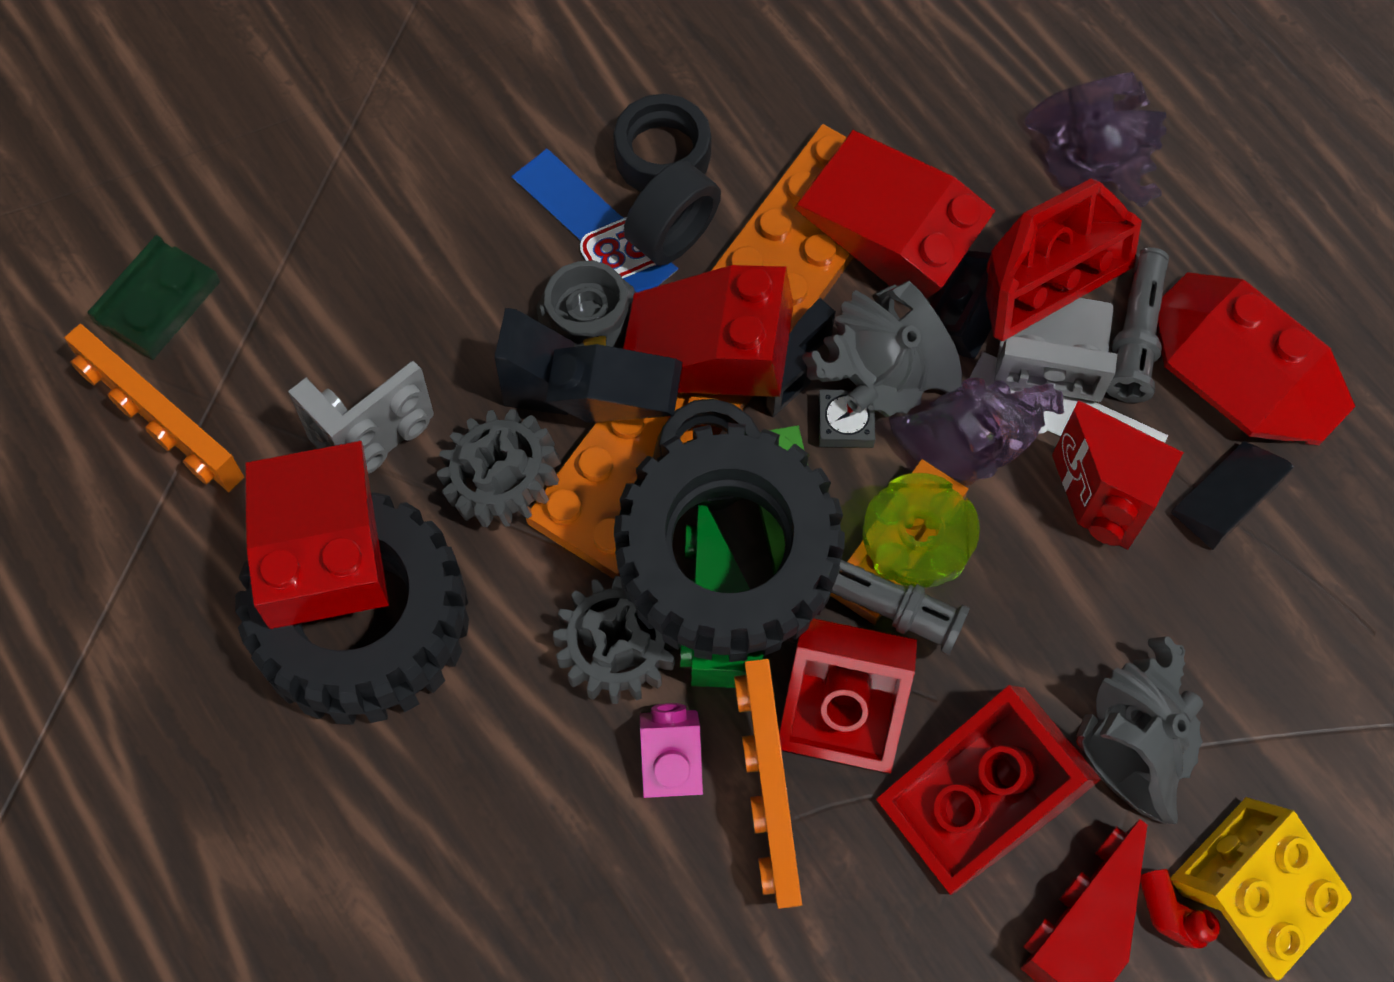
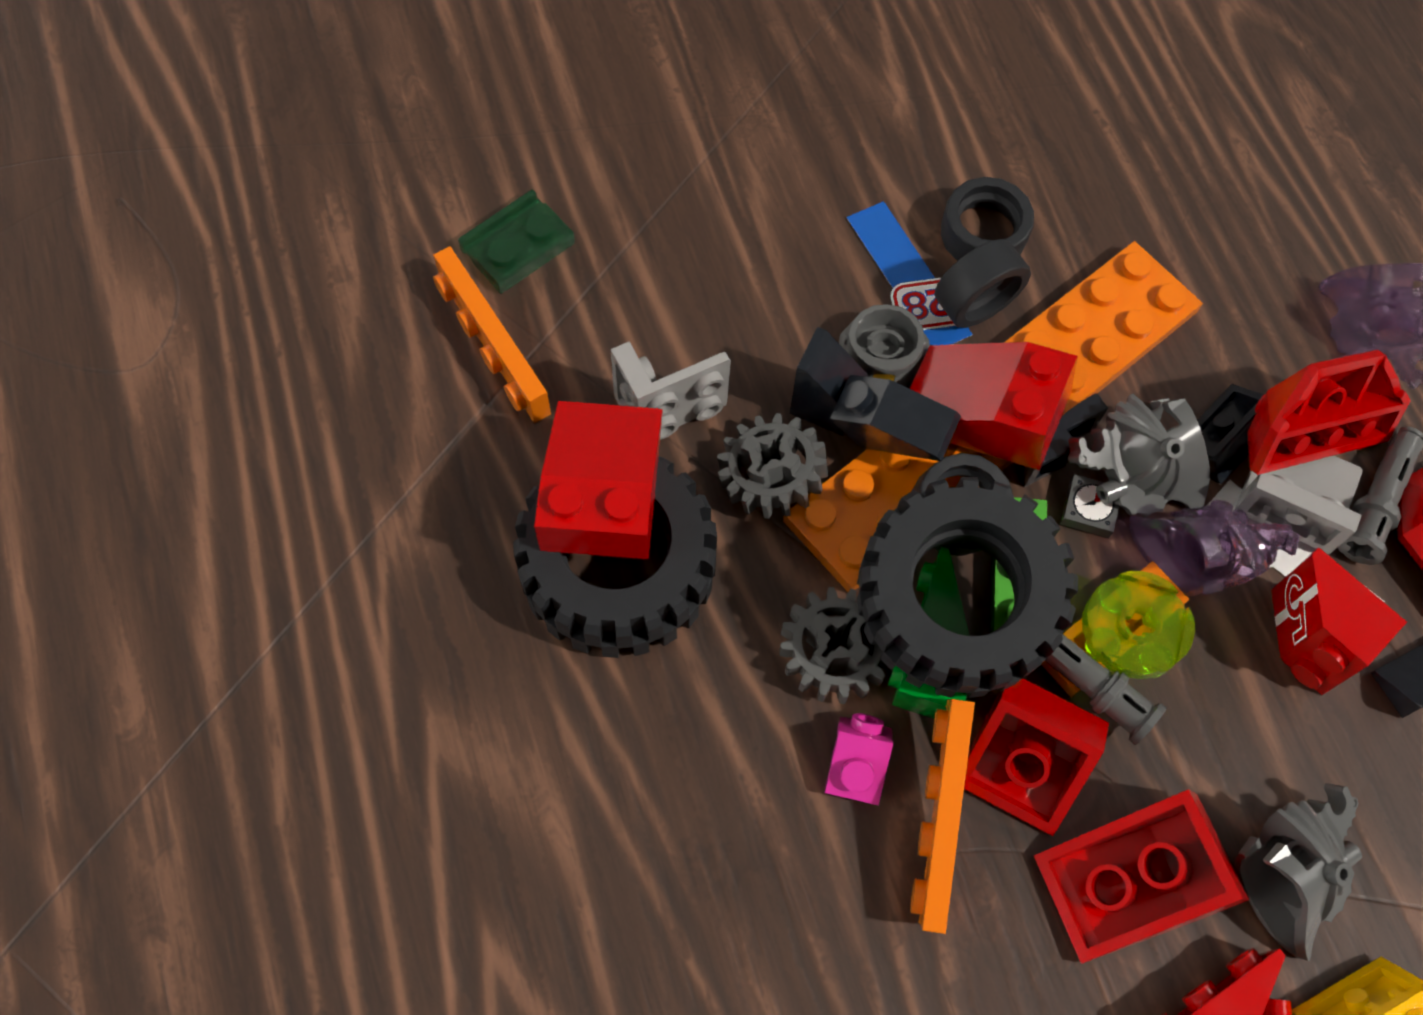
camera: 15 degrees right, 0 degrees up
(895, 213) = (1184, 335): red slope -> none

